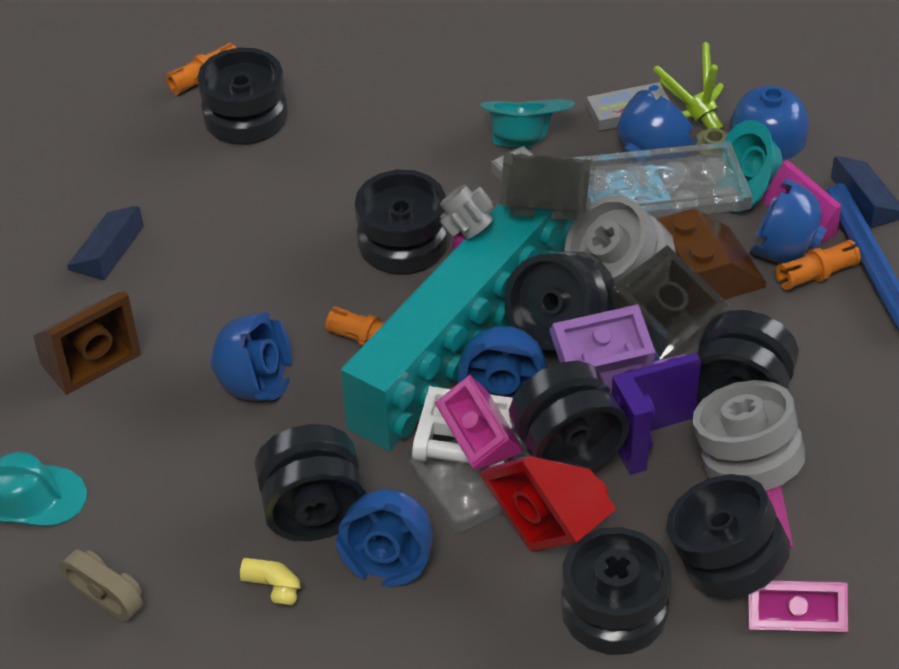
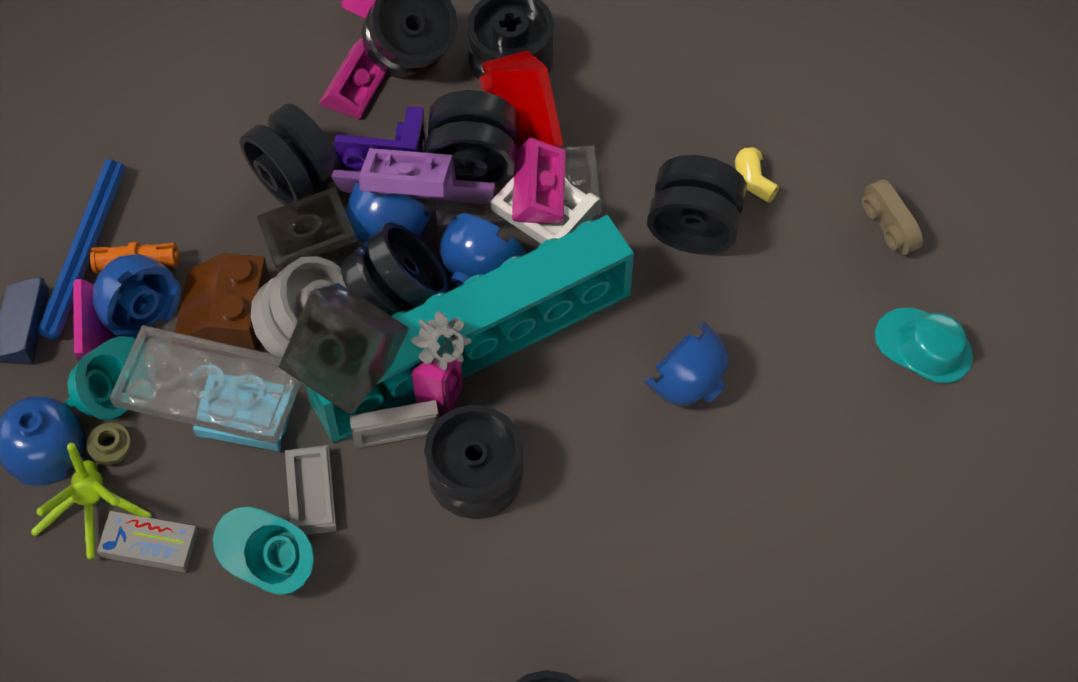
camera: 155 degrees left, 15 degrees up
(89, 343) = (833, 455): reddish brown slope -> none
(107, 242) = (769, 605): dark blue slope -> none
(352, 325) = (564, 371): orange pin -> none
(386, 537) = (647, 147): blue cylinder -> none
(652, 124) = (166, 460): blue cylinder -> none
(750, 432) = (339, 75): light grey wheel -> none

